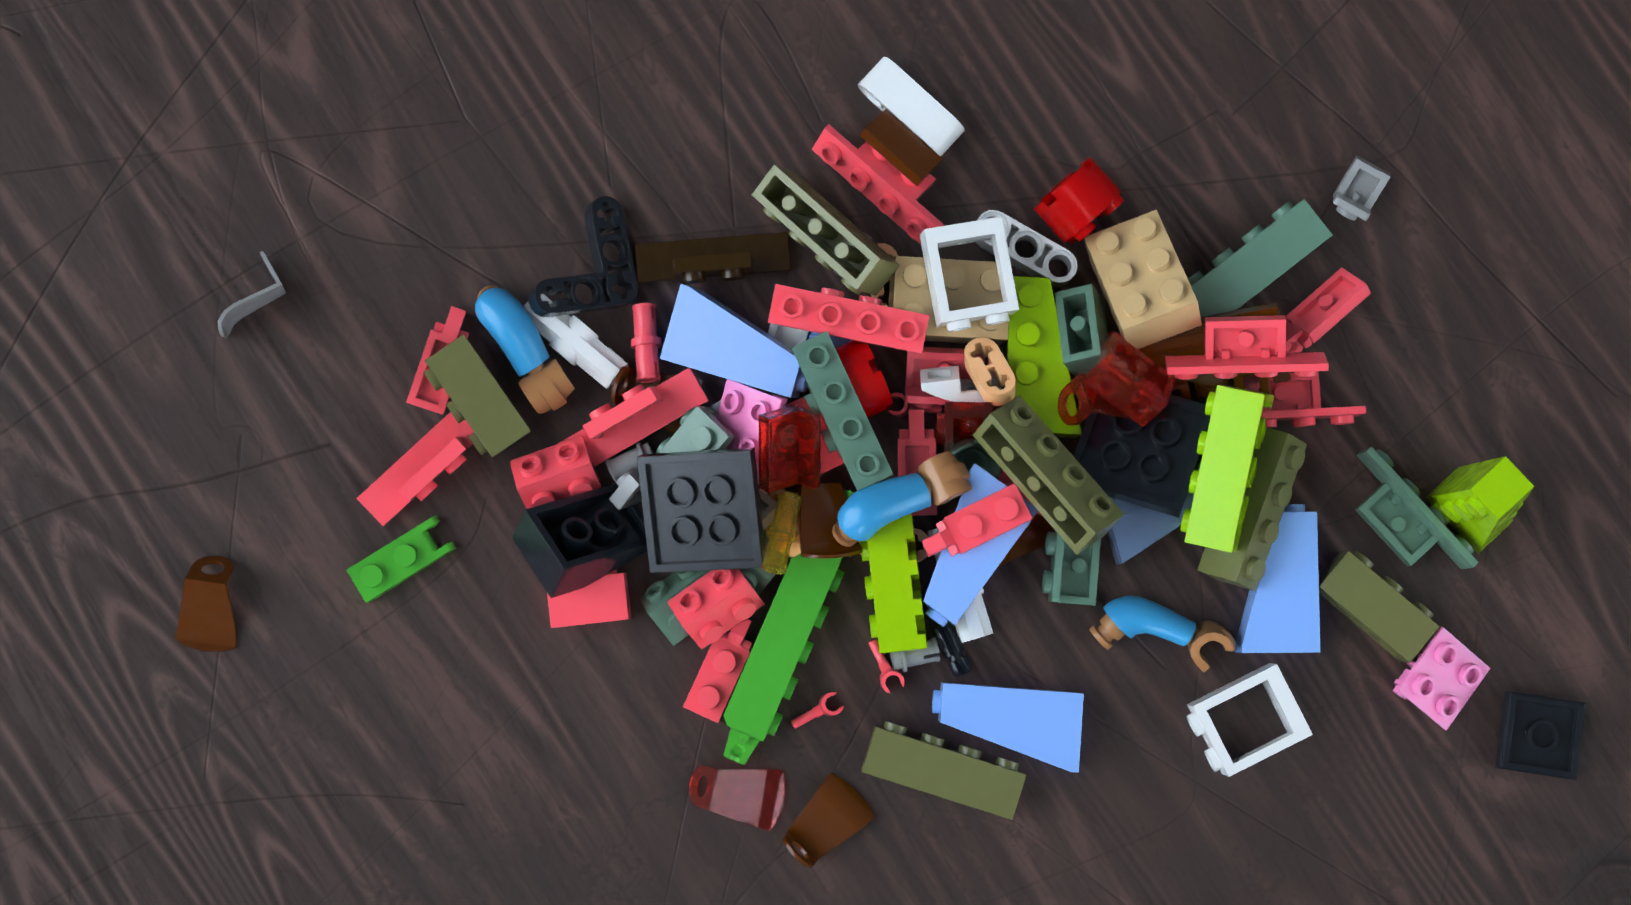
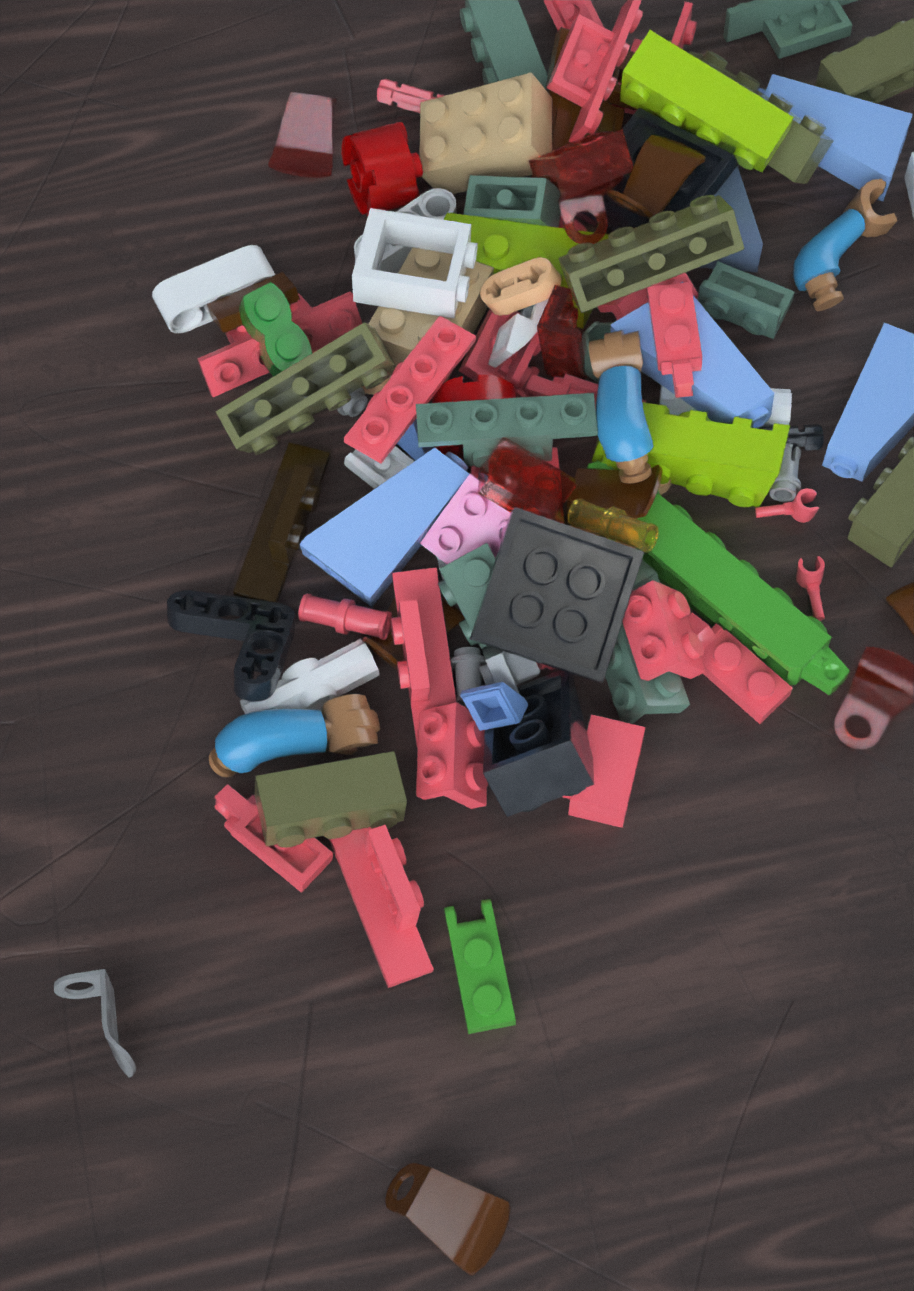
camera: 65 degrees left, 20 degrees down
(595, 497) = (494, 705): none -> medium blue slope
(868, 176) = (268, 321): none -> green brick
(1102, 117) = (305, 137): none -> clear red piece
(1138, 450) = (657, 176): none -> reddish brown piece
(1179, 197) = (406, 96): none -> coral axle

